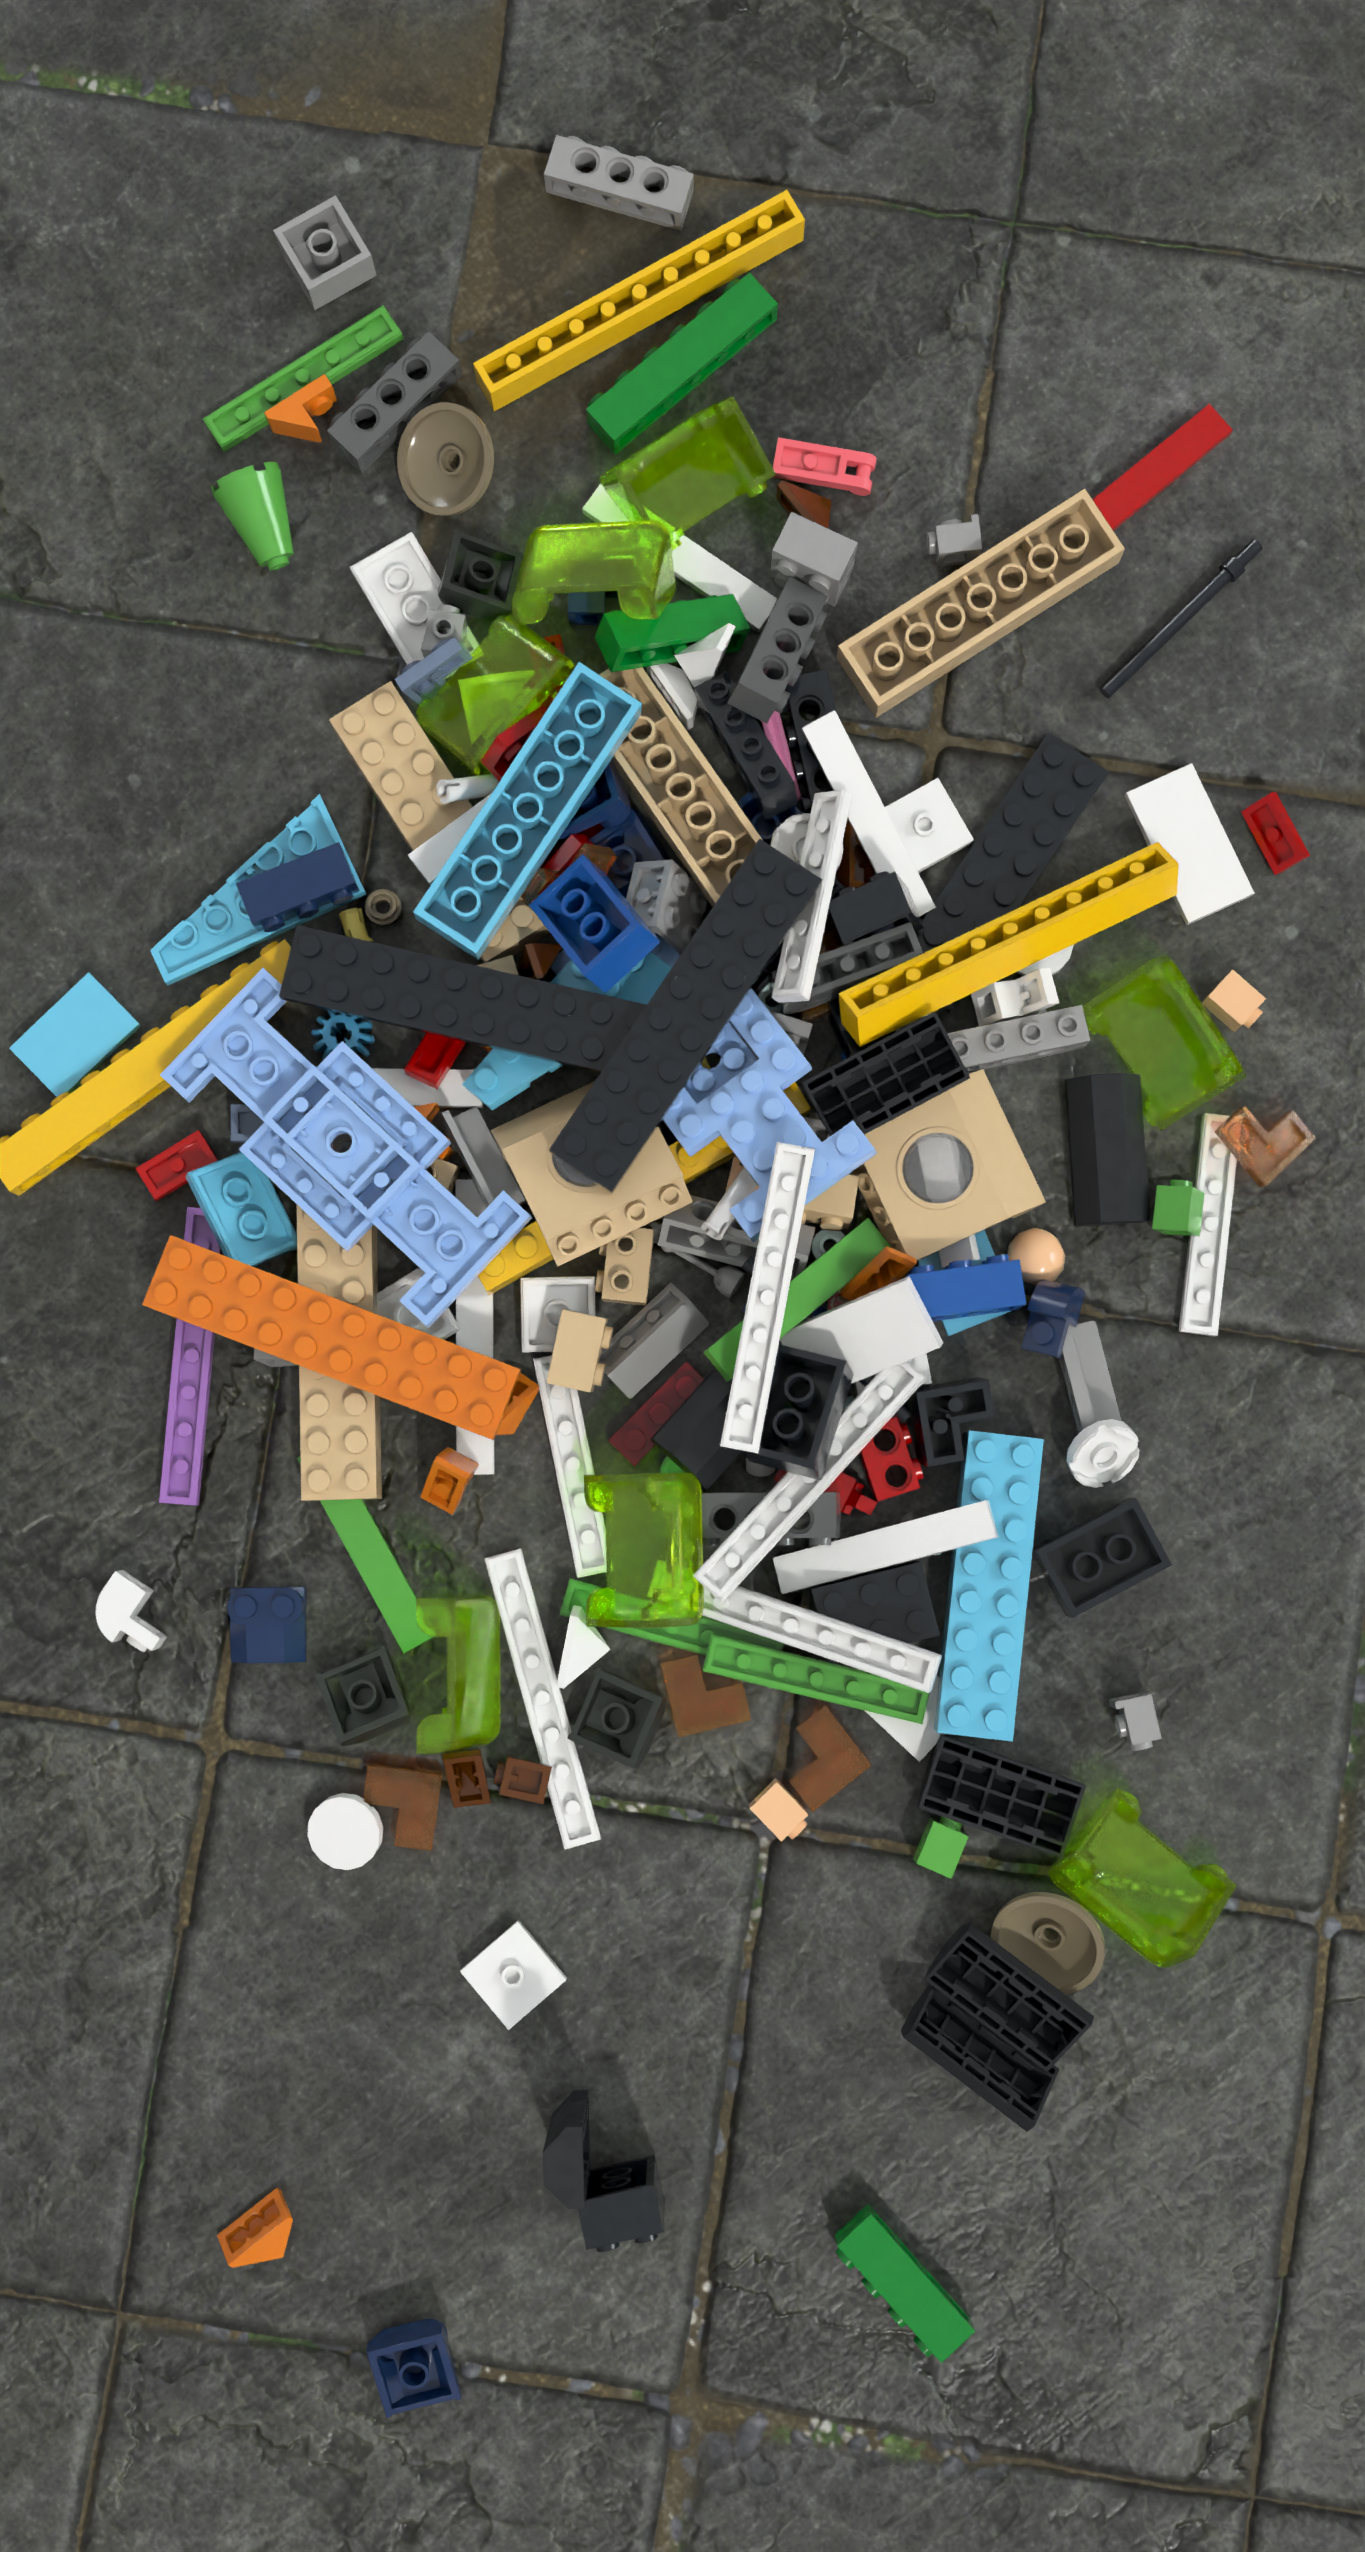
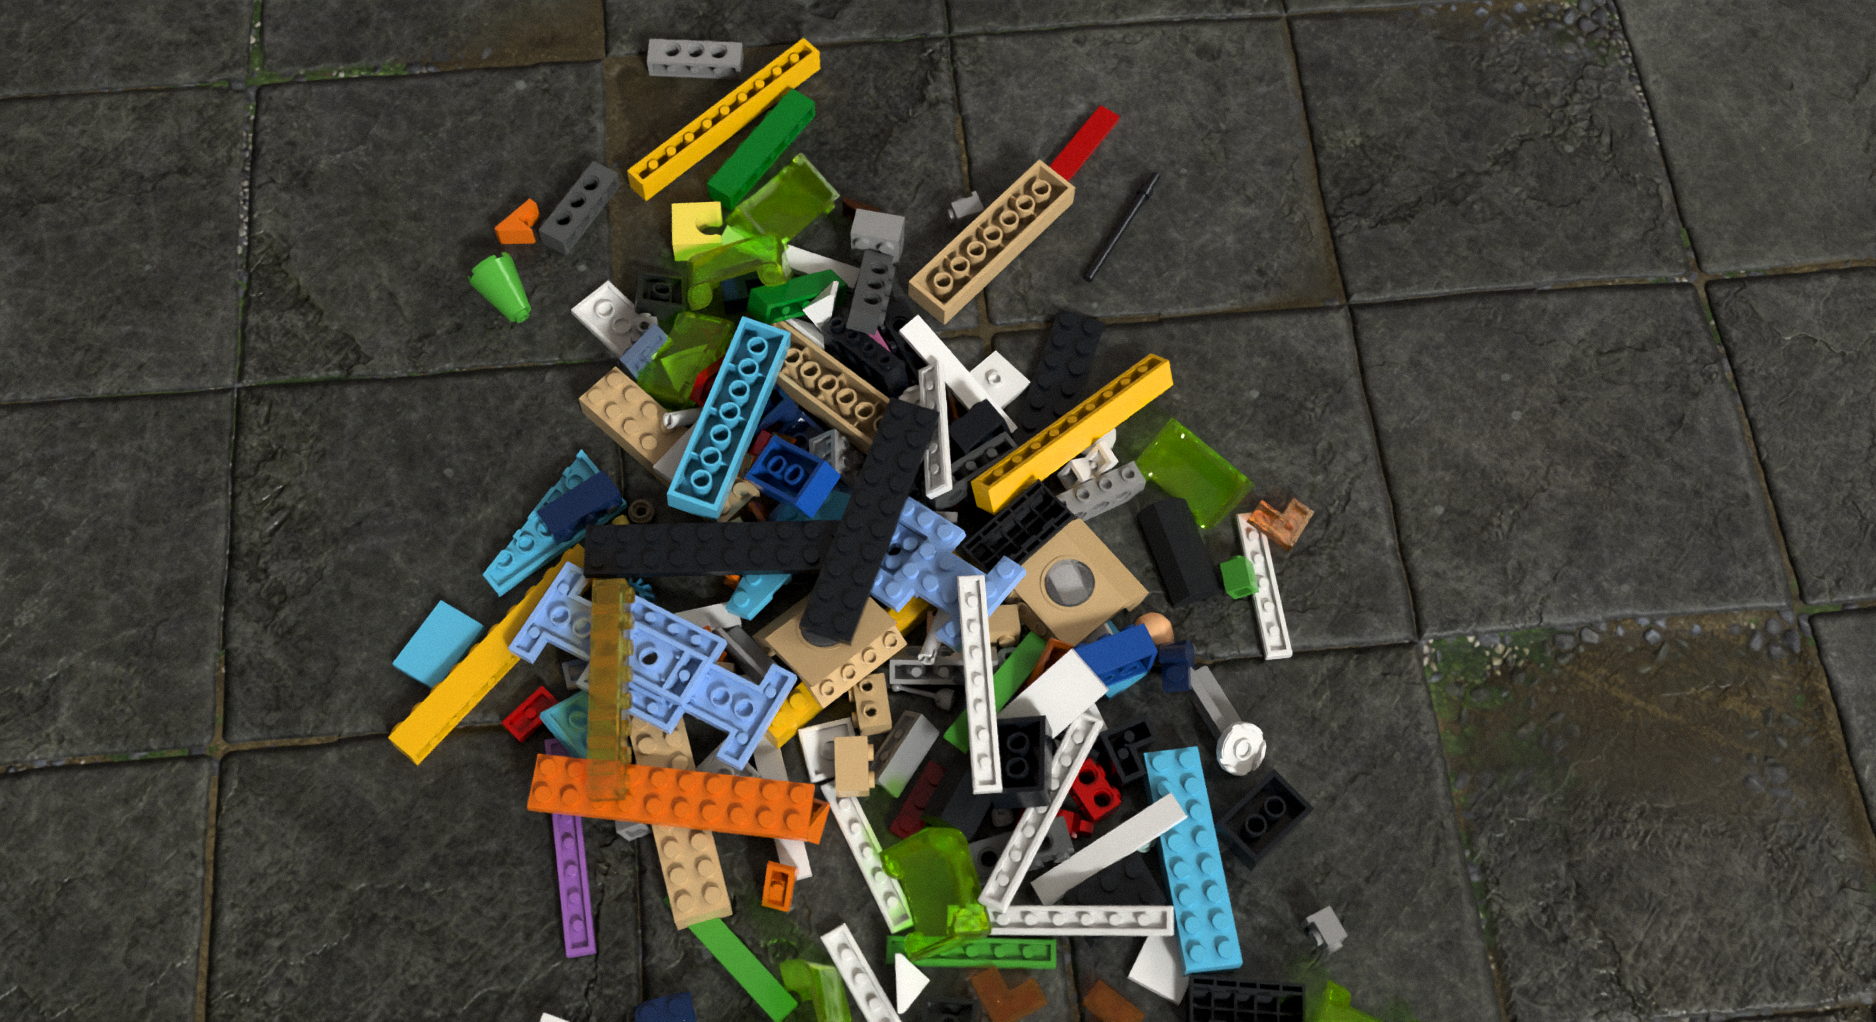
camera: 20 degrees left, 20 degrees down
(277, 1176) = (609, 690): none -> clear yellow brick
(325, 252) = (514, 131): light grey brick -> none
(333, 358) = (537, 188): bright green tile -> none
(429, 458) = (610, 228): dark tan dish -> none
(433, 1059) = (701, 596): red tile -> none
(541, 470) = (687, 224): none -> light yellow piece
(814, 1678) = (1087, 960): bright green tile -> none
(823, 466) = (869, 187): coral plate -> none
(1186, 825) = (1160, 336): white tile -> none
(1235, 1002) = (1232, 440): light nougat brick -> none
(1275, 833) = (1224, 335): red plate -> none

